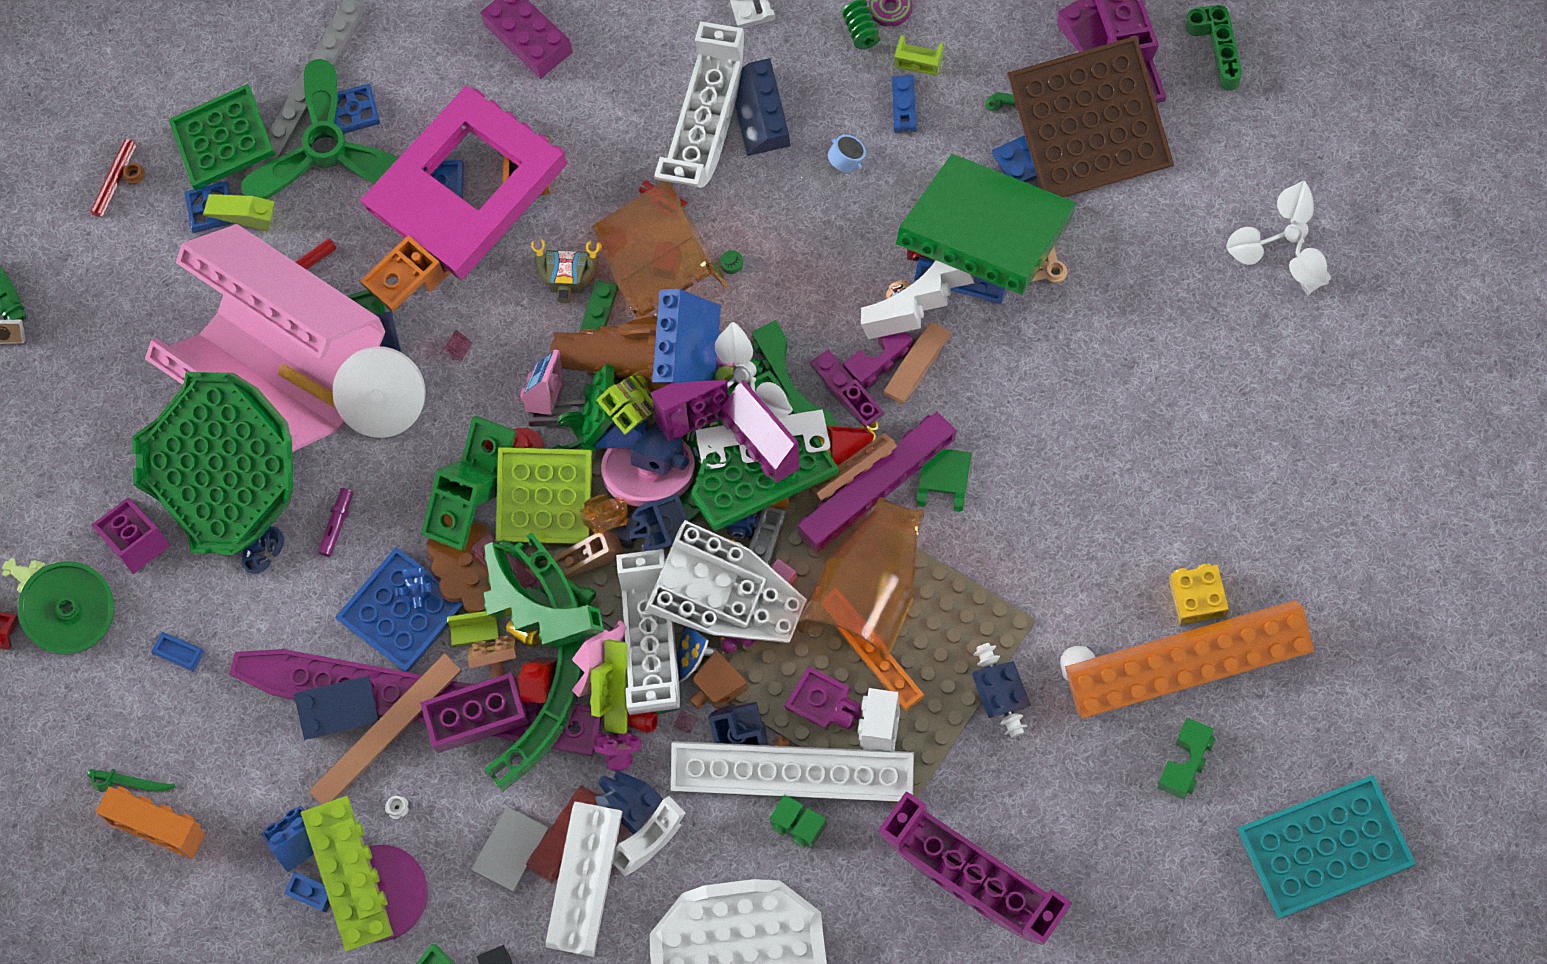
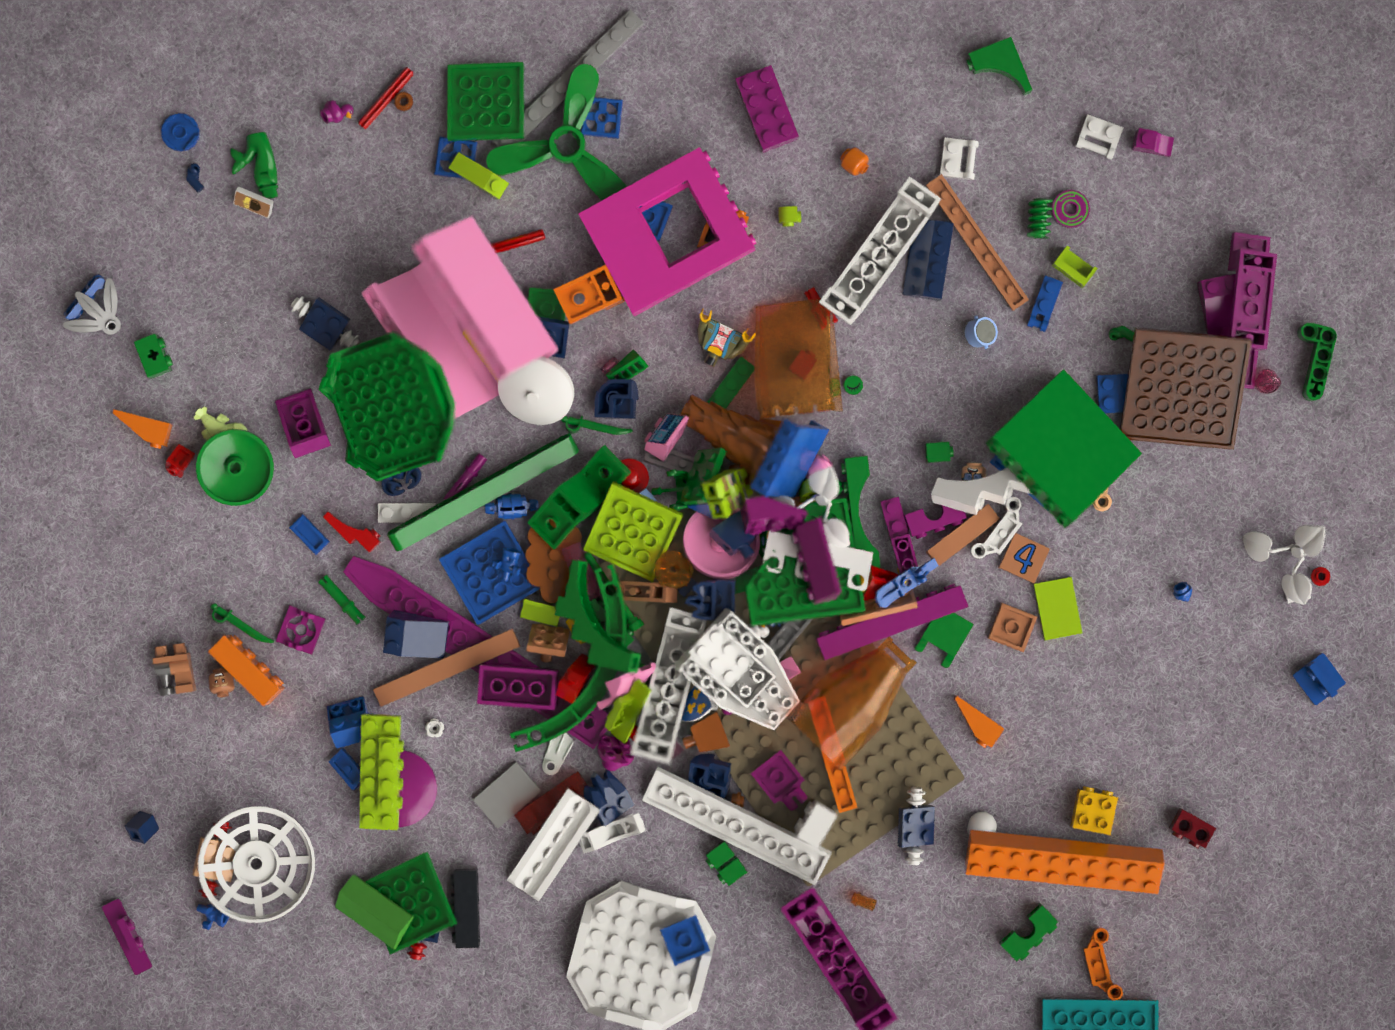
camera: 15 degrees right, 20 degrees up
(60, 211) = (335, 114): none -> magenta animal
(65, 854) = (177, 665): none -> nougat hips
(115, 420) = (324, 323): none -> dark blue plate
(126, 851) = (221, 682): none -> nougat head
(202, 777) = (284, 639): none -> magenta piece
(227, 629) = (367, 538): none -> red slope
(246, 710) = (342, 600): none -> green pin
(282, 585) = (400, 511): none -> white plate
(358, 526) = (483, 492): none -> beam
(398, 528) = (511, 506): none -> blue piece
(454, 413) = (592, 425): none -> green sword
(474, 372) = (616, 399): none -> dark blue brick
(480, 343) = (632, 359): none -> green slope
(551, 778) = (557, 752): none -> white piece
(592, 123) = (788, 216): none -> lime plate
(640, 45) = (854, 161): none -> orange head
(782, 922) = (685, 940): none -> blue plate
(811, 75) = (977, 243): none -> nougat plate
(853, 290) = (938, 452): none -> green brick
(864, 434) = (896, 587): none -> piece
(960, 344) = (1002, 532): none -> white plate
(973, 802) = (863, 901): none -> clear orange pin
(996, 362) = (1024, 558): none -> nougat tile
(1016, 438) = (1012, 627): none -> nougat tile
(1027, 552) = (980, 725): none -> orange slope
(1058, 399) = (1057, 608): none -> lime tile
(1177, 84) = (1267, 381): none -> clear pink cone
(1188, 326) = (1182, 591): none -> blue plate
(1284, 764) = (1098, 966): none -> orange plate
(1319, 561) = (1193, 826): none -> dark red brick
(1332, 258) = (1314, 576): none -> red plate
(1382, 357) = (1319, 679): none -> blue bracket

